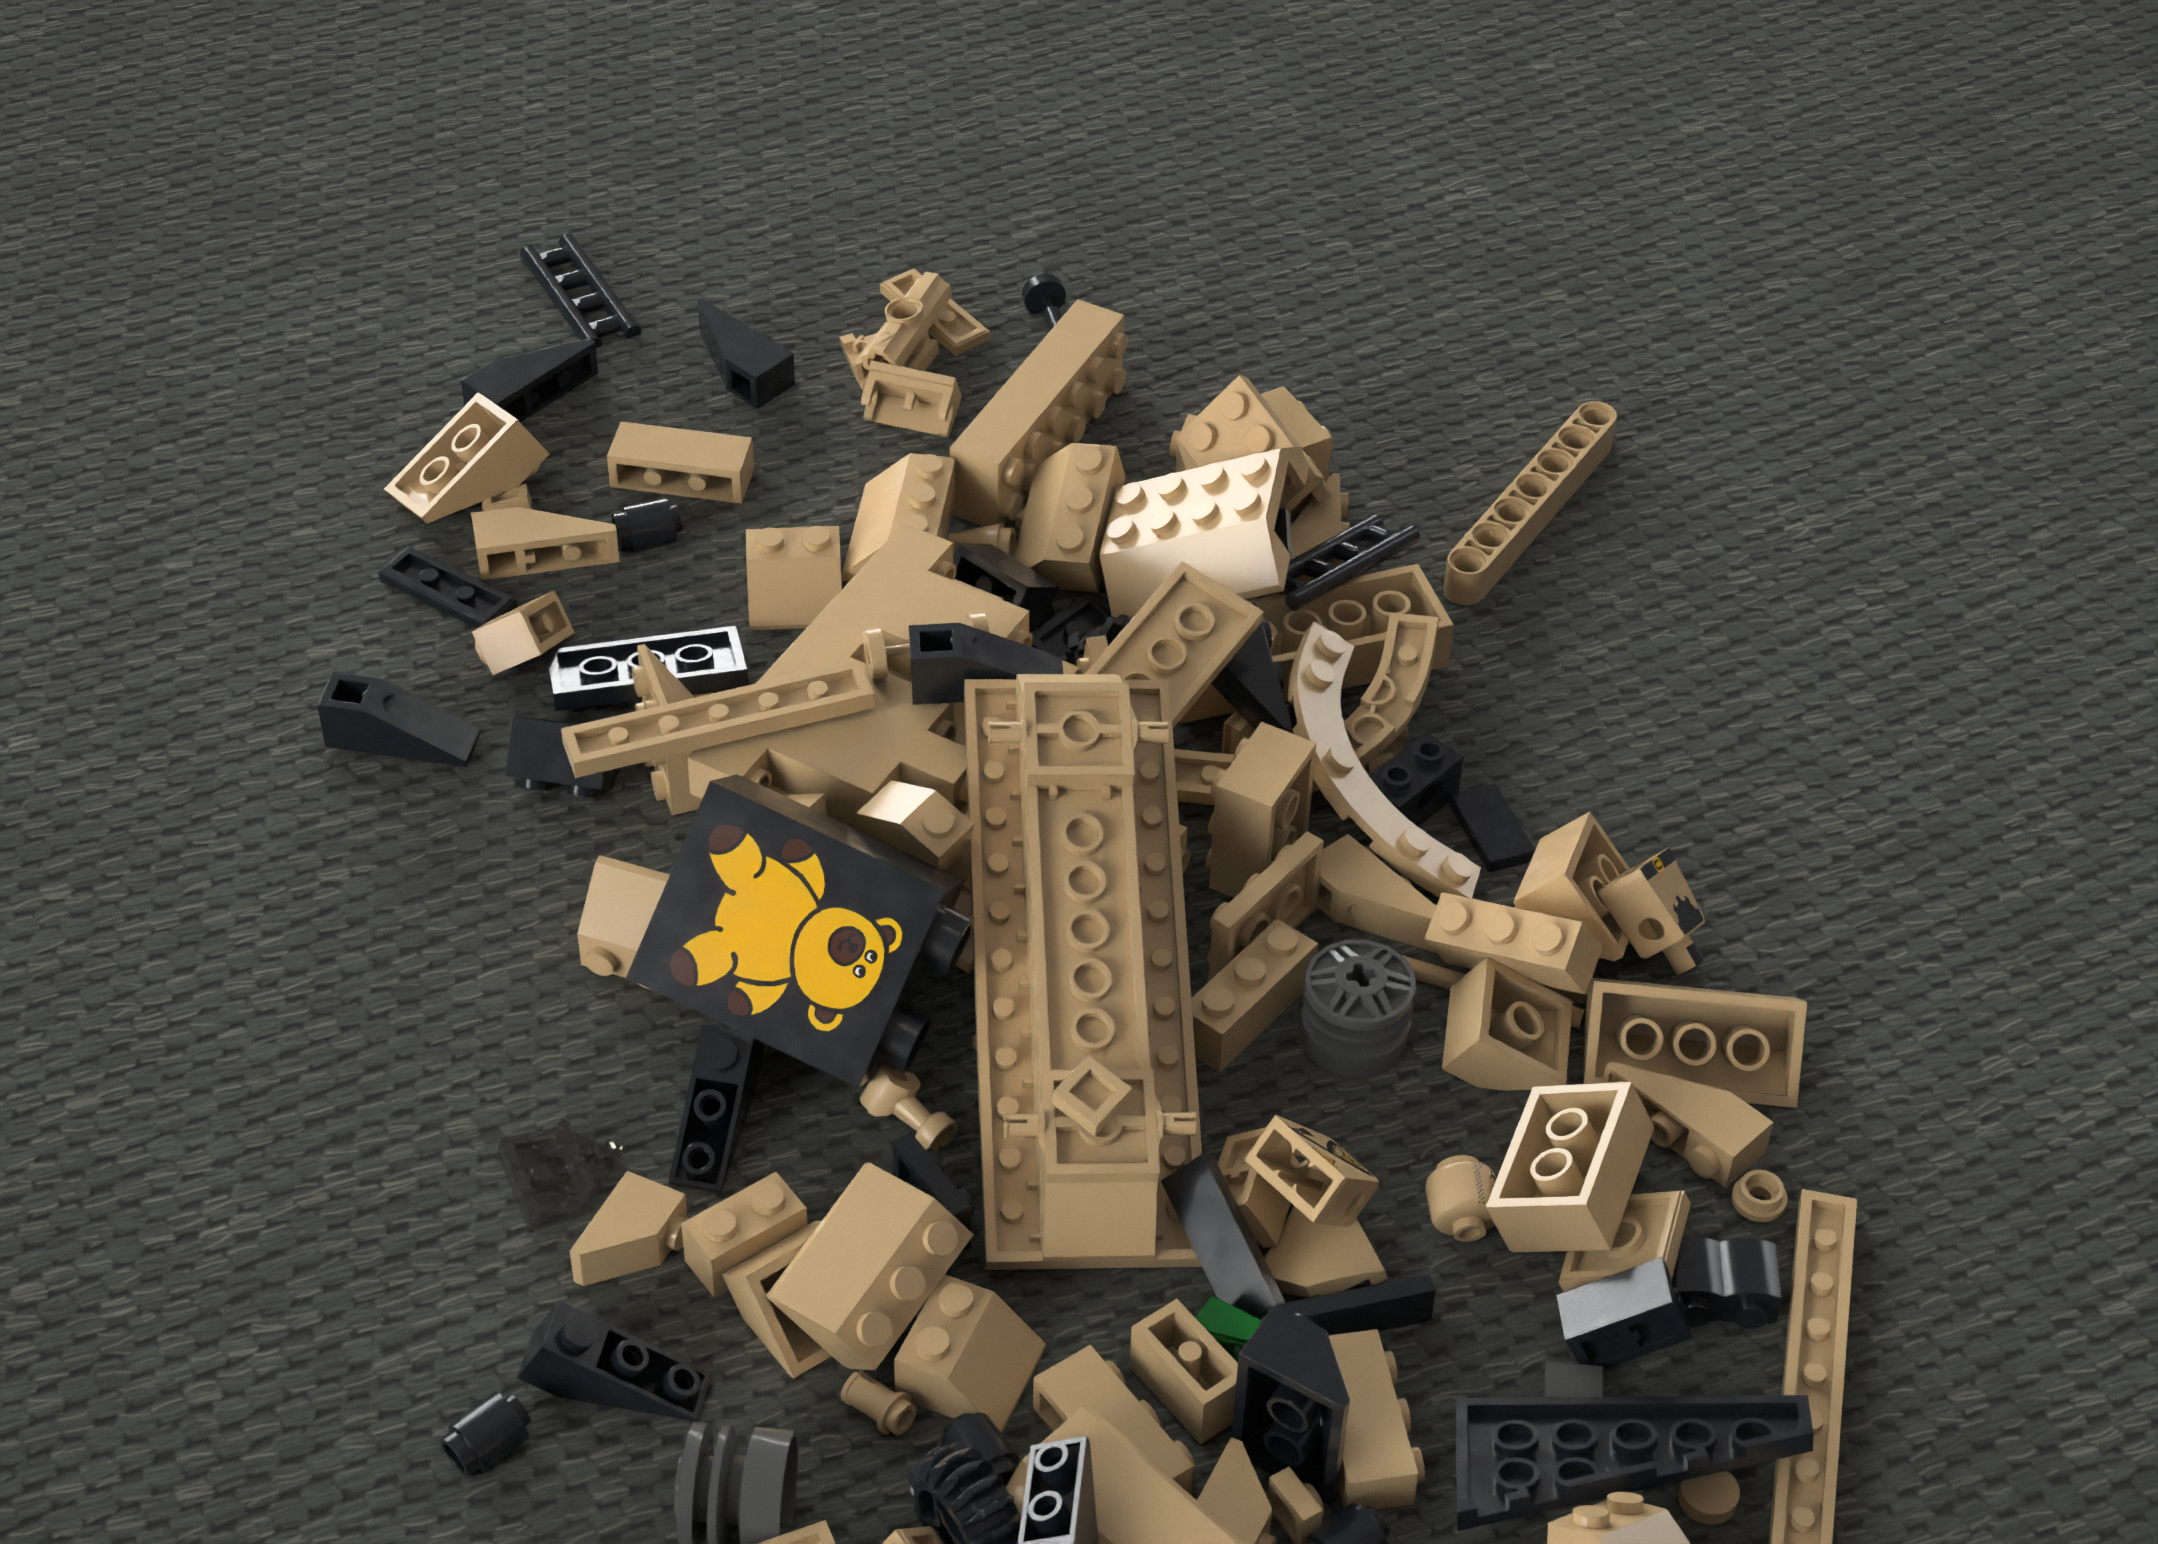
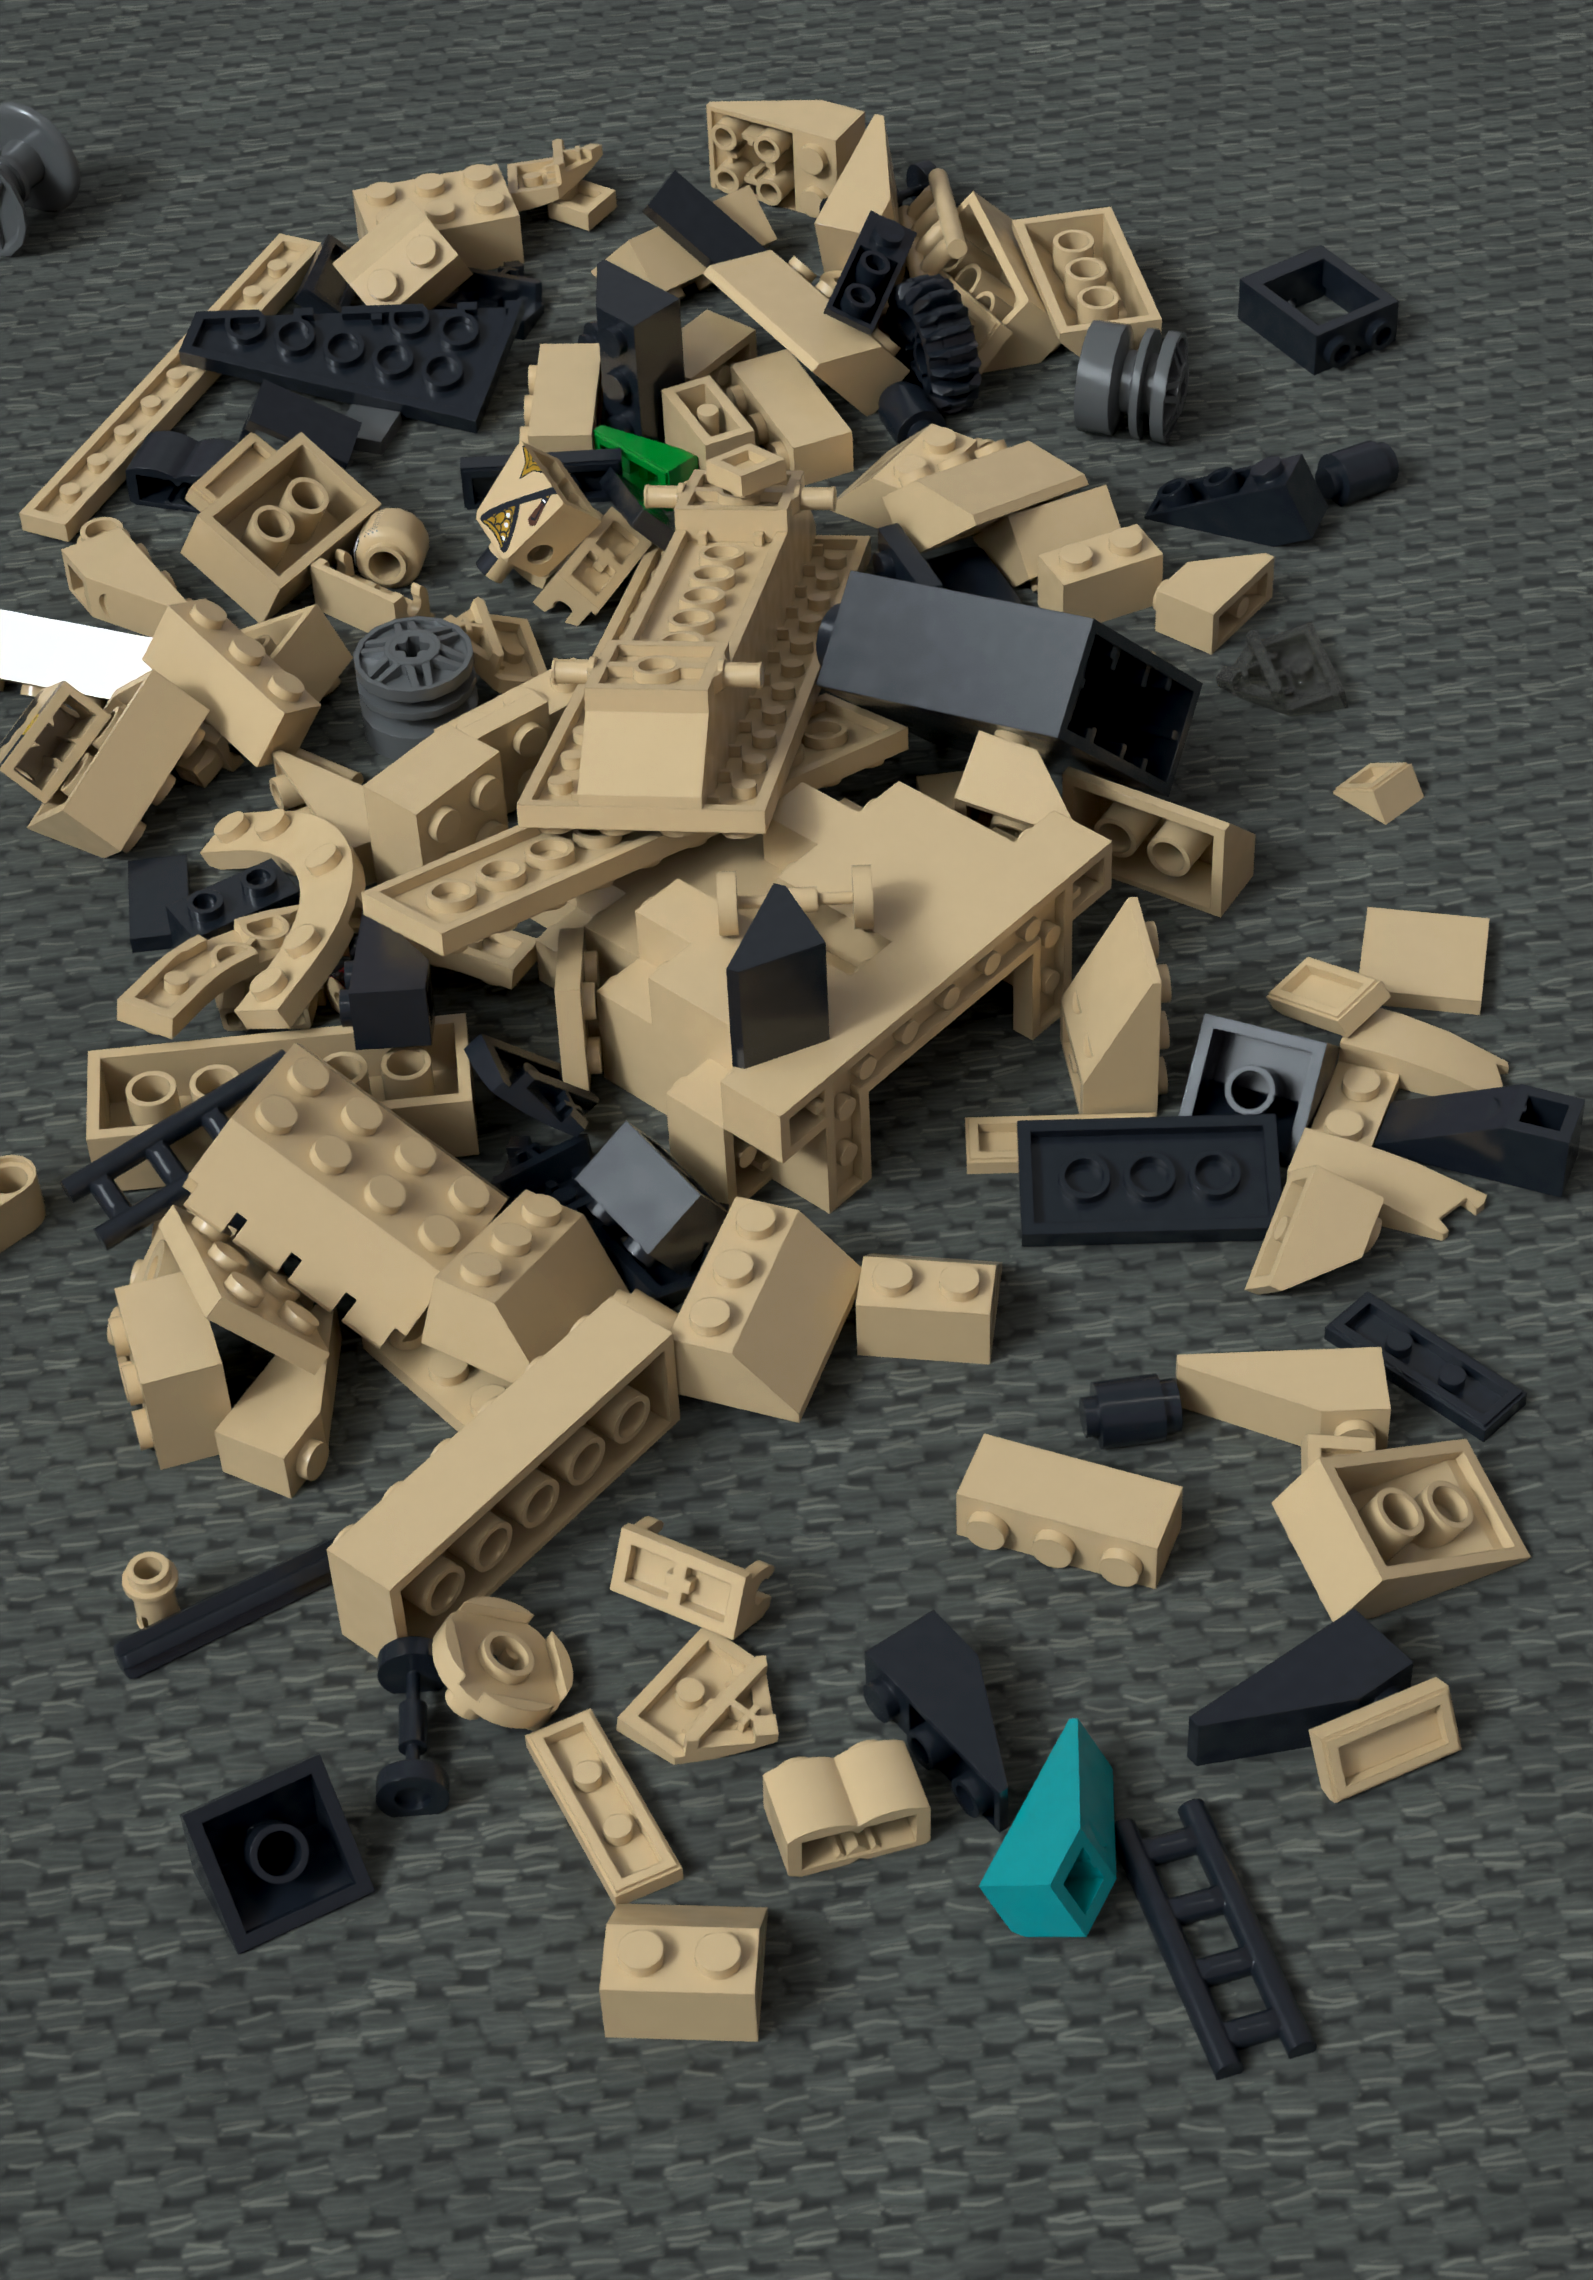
camera: 165 degrees left, 0 degrees up
(436, 890) = (1426, 958): none -> tan tile
(450, 375) = (1385, 1739): none -> tan tile
(472, 1054) = (1382, 790): none -> tan slope
(478, 792) = (1373, 1063): none -> tan wedge
(514, 814) = (1328, 996): none -> tan tile
(662, 296) = (1061, 1845): none -> teal slope
(717, 718) = (1068, 846): tan plate -> none
(793, 309) = (846, 1806): none -> tan brick
(865, 235) = (683, 1972): none -> tan slope
(909, 321) = (641, 1730): tan piece -> none
(914, 544) = (777, 984): none -> black slope
(918, 823) = (854, 726): tan slope -> none
(954, 652) = (760, 839): black slope -> none
(992, 351) = (533, 1669): none -> tan plate
(1112, 262) = (275, 1853): none -> black slope
(1169, 390) = (224, 1611): none -> black axle
(1239, 351) = (151, 1584): none -> tan pin
(1308, 1077) = (501, 647): none -> tan slope
(1449, 1128) = (361, 600): none -> tan hinge

